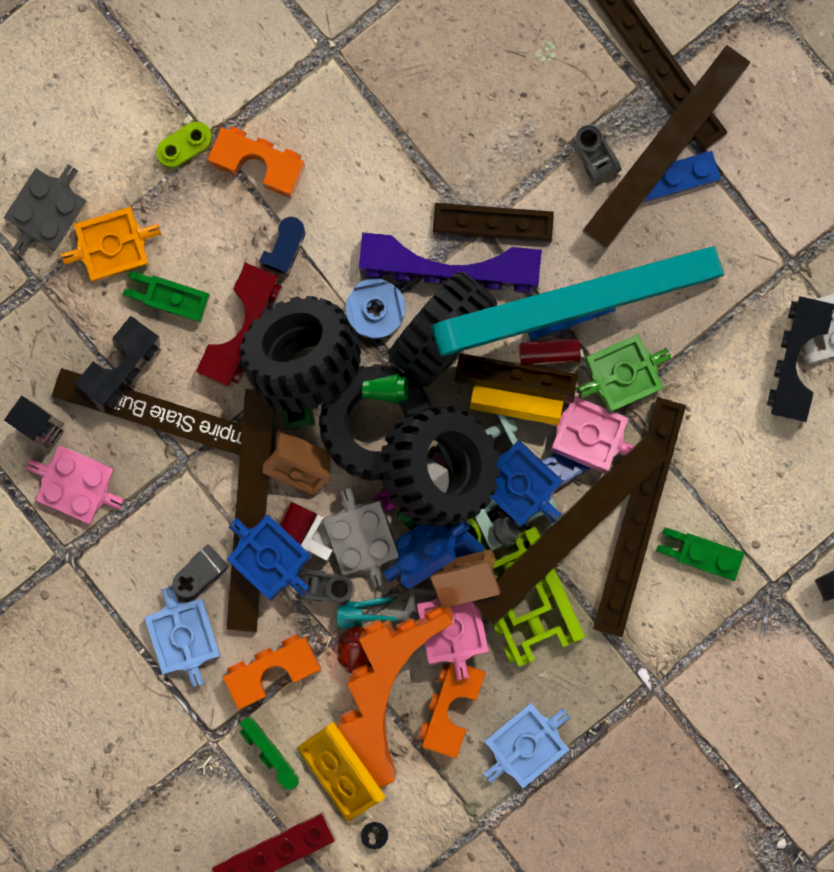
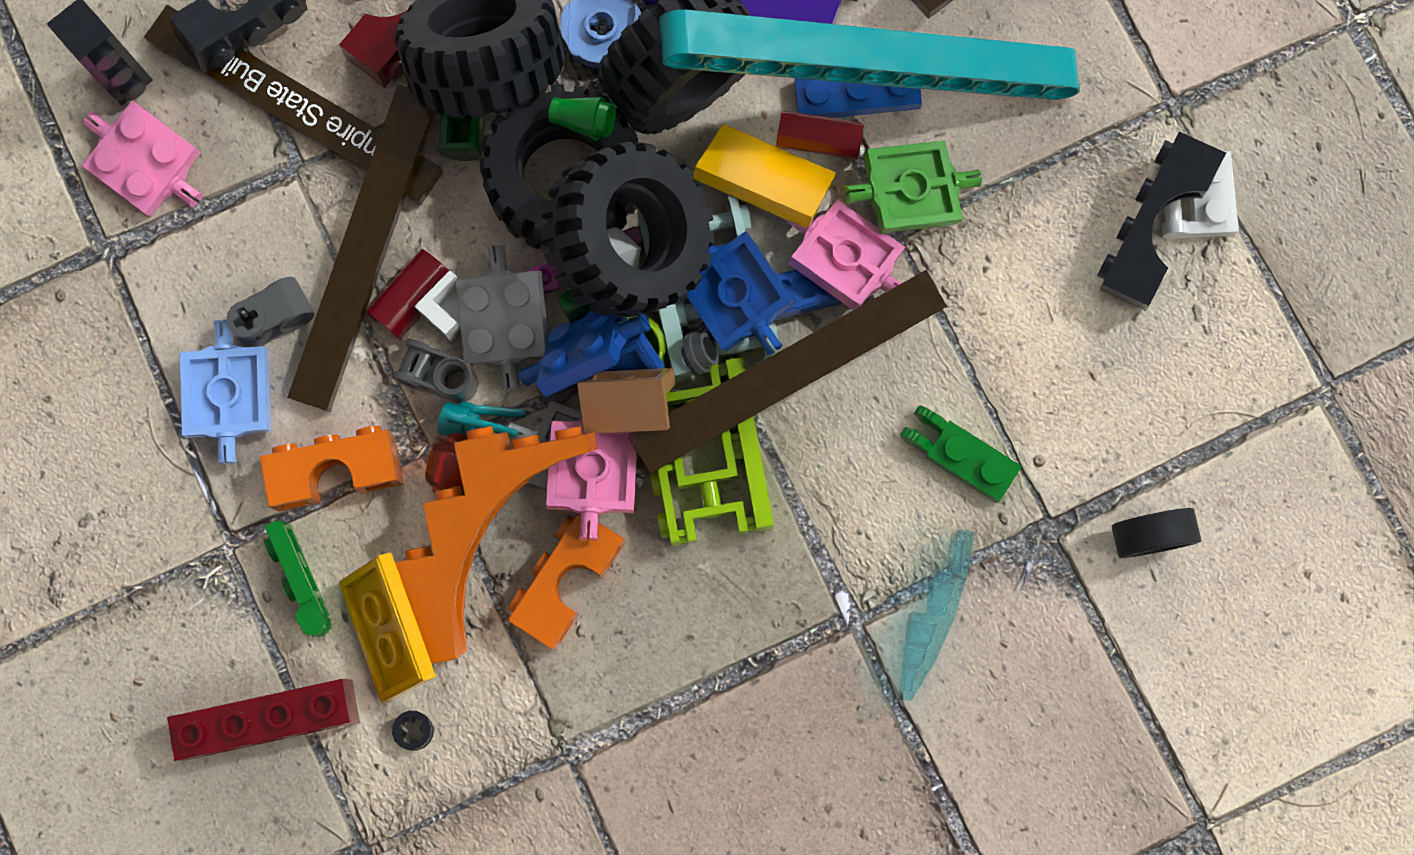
camera: 10 degrees right, 5 degrees down
(269, 557) = (367, 310): blue plate -> none
(298, 463) = (442, 198): medium nougat panel -> none
(516, 378) = (765, 155): dark brown tile -> none
(526, 745) = (655, 657): light blue plate -> none
(638, 524) = (883, 393): dark brown plate -> none
(707, 683) = (929, 630): none -> clear light blue slope

